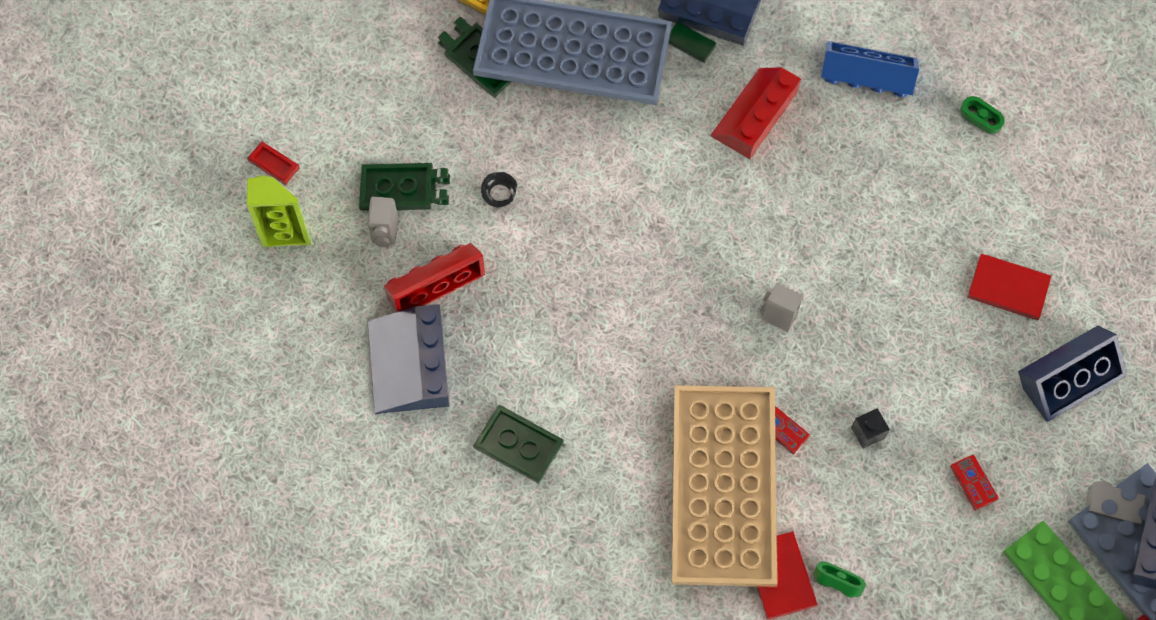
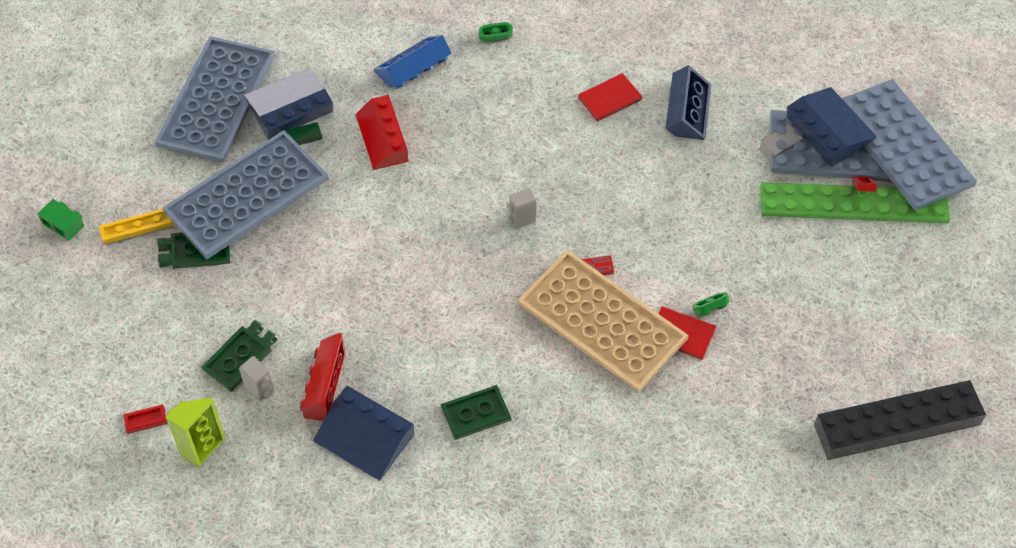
camera: 50 degrees left, 10 degrees down
(494, 179) = (294, 295): black piece -> none
(870, 428) = (634, 221): black brick -> none
(974, 482) = (710, 198): red tile -> none

